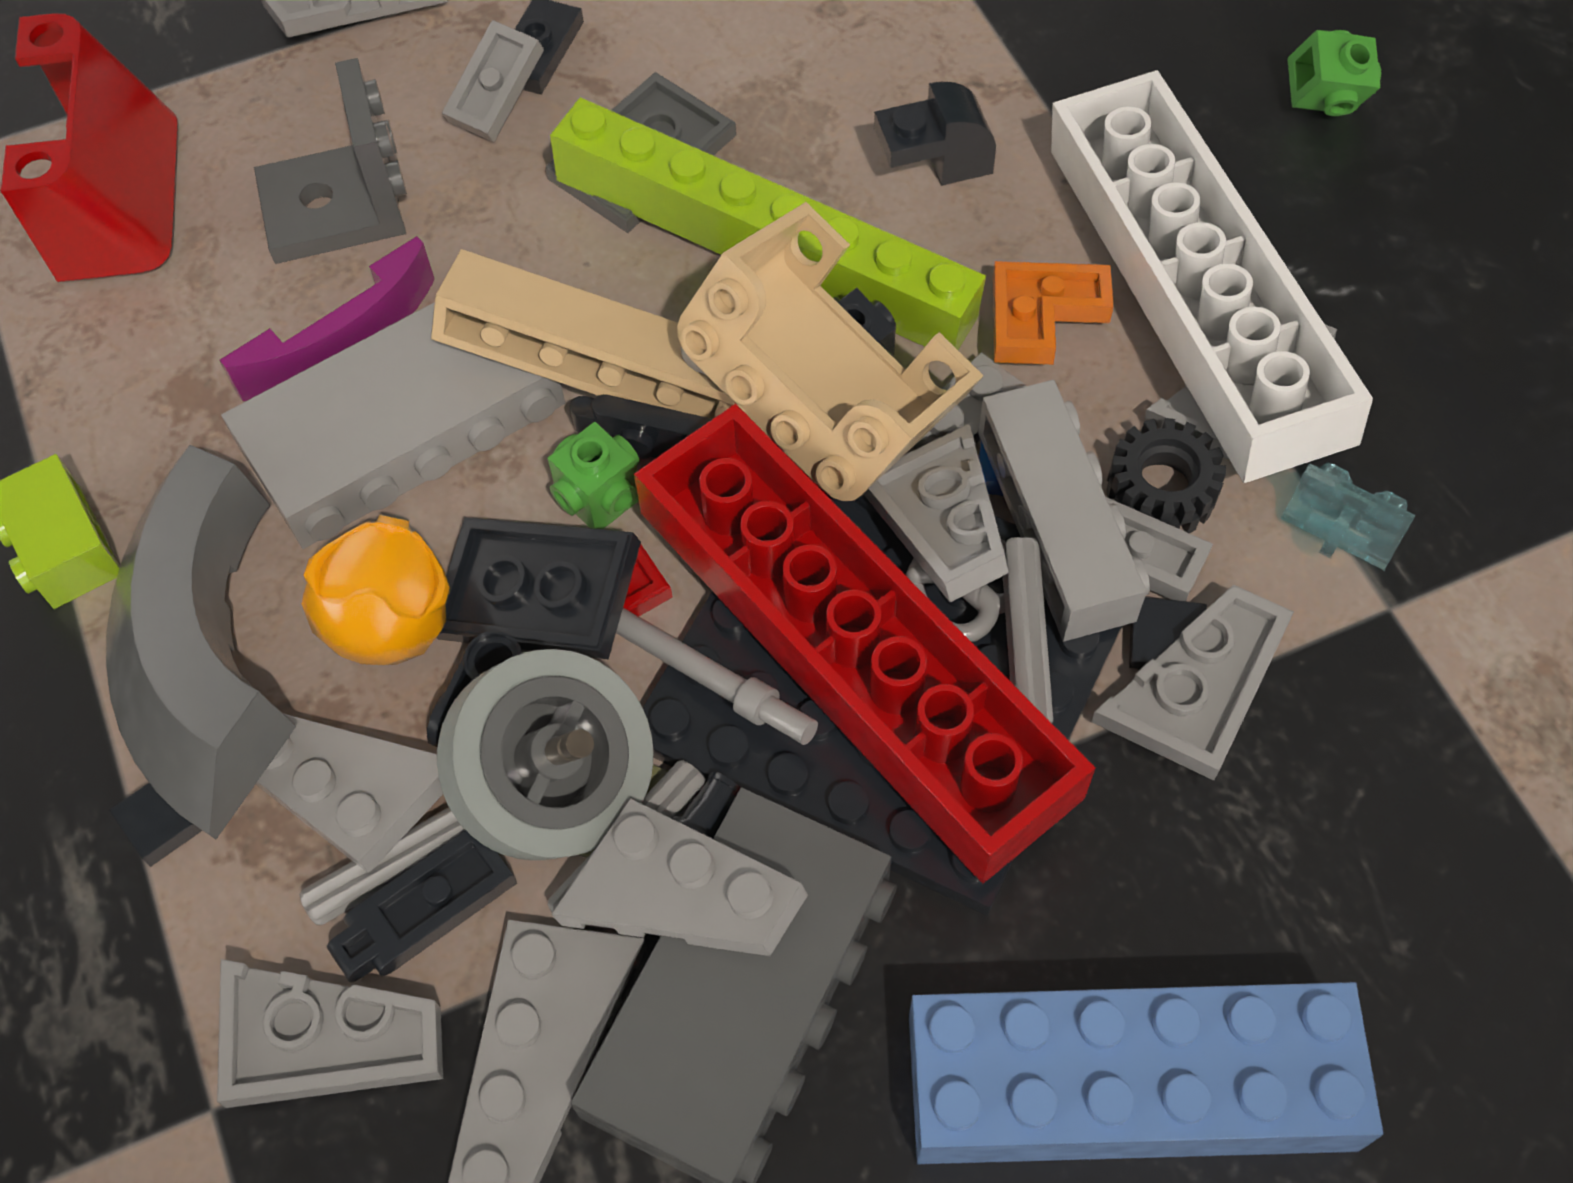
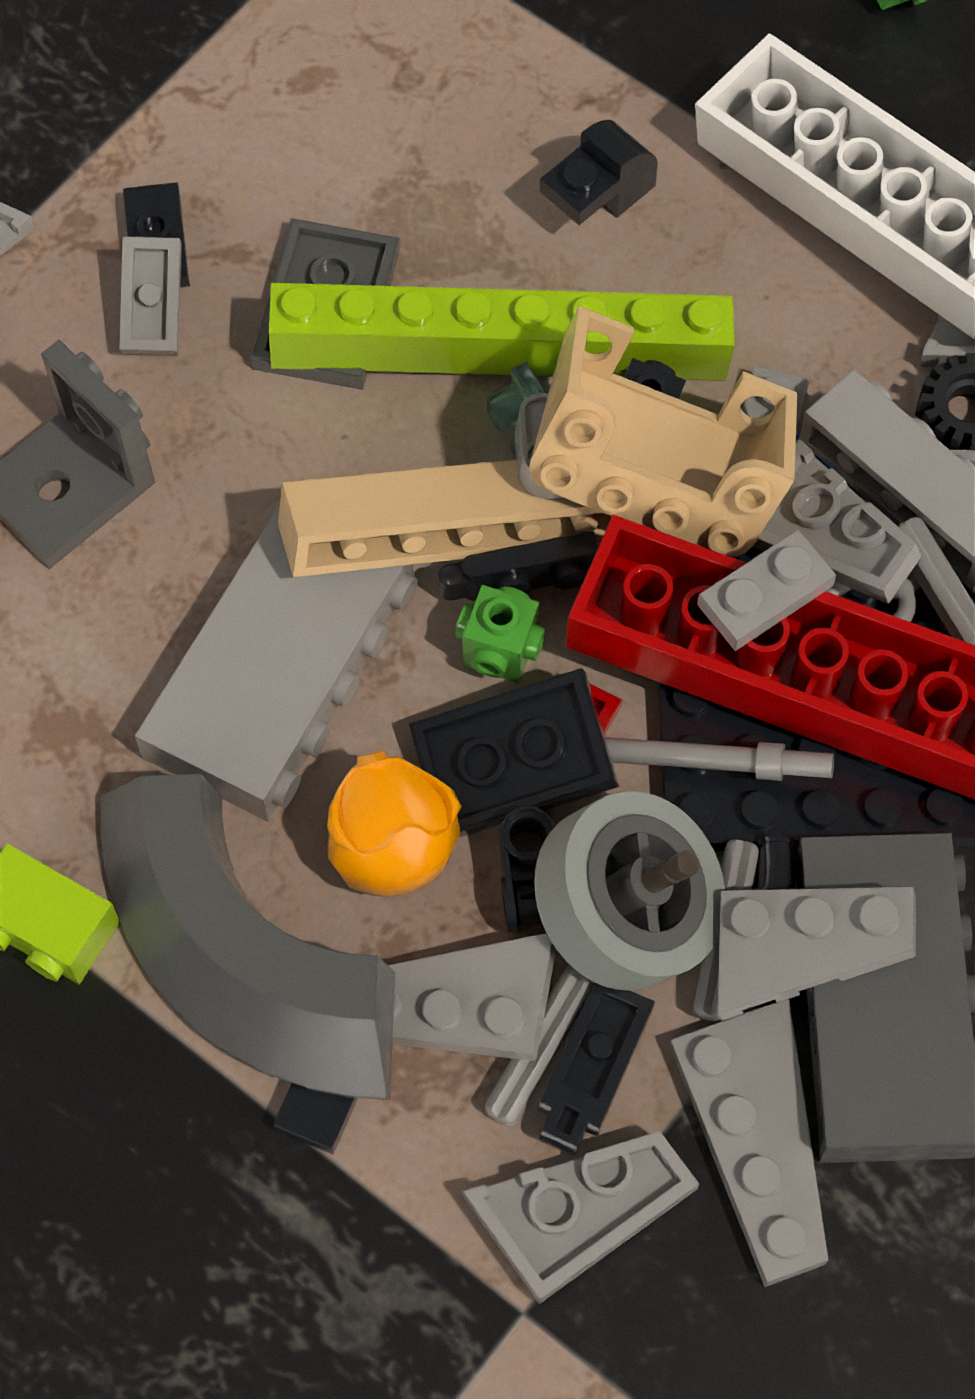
camera: 30 degrees left, 5 degrees up
(399, 288) = (137, 664): magenta slope -> none
(830, 531) = (766, 590): none -> light grey plate
(1034, 296) = (772, 296): orange plate -> none

